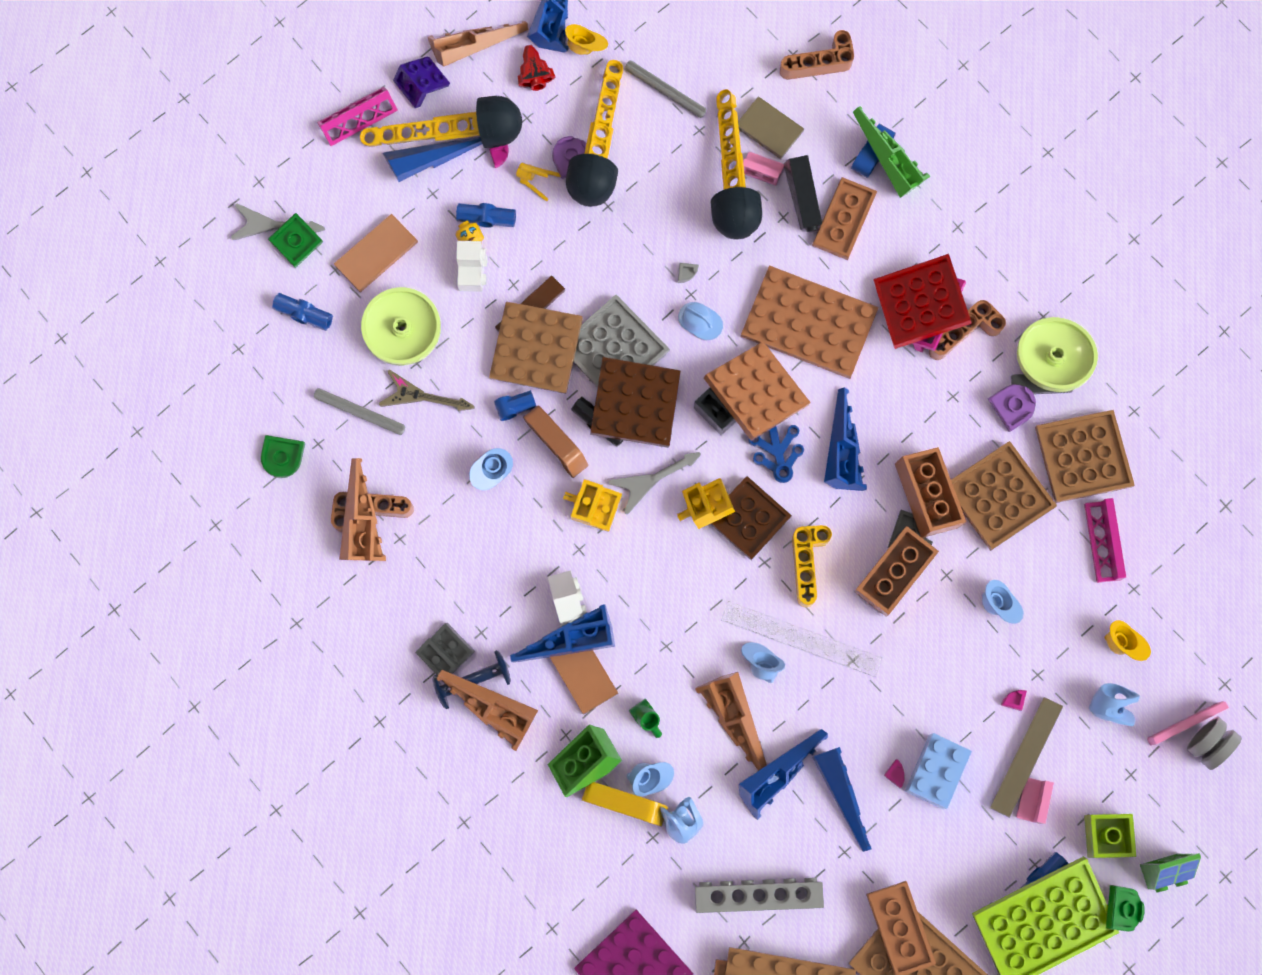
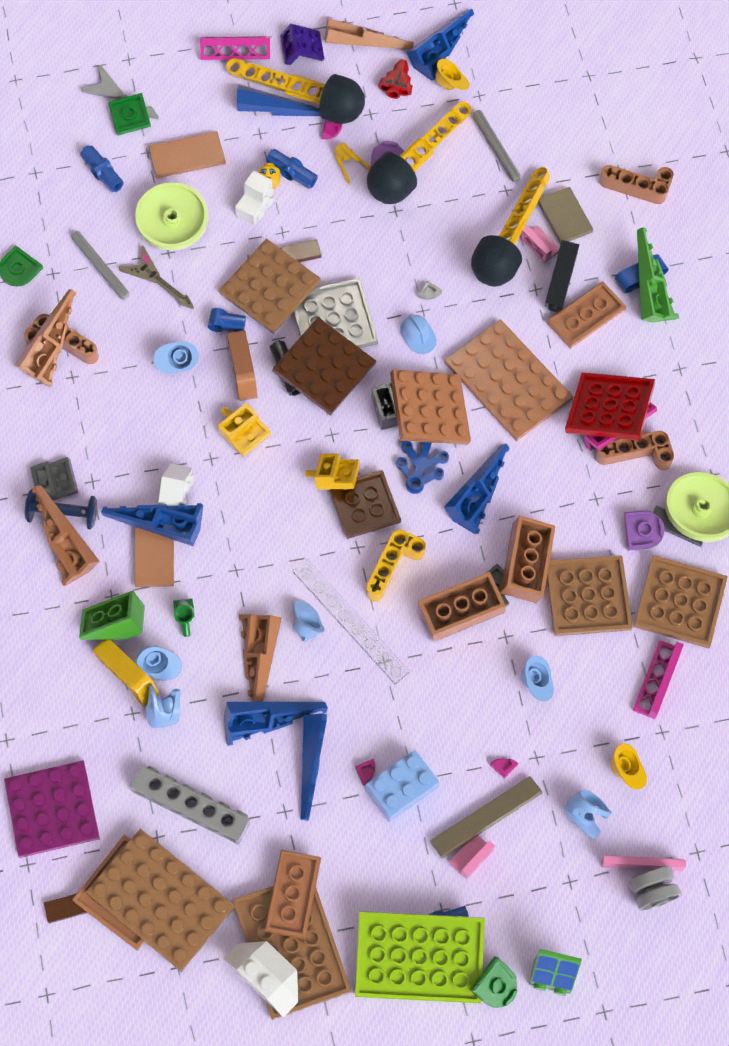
camera: 25 degrees right, 10 degrees down
(642, 484) = (291, 434): light grey piece -> none
(1110, 835) = (519, 917): lime brick -> none

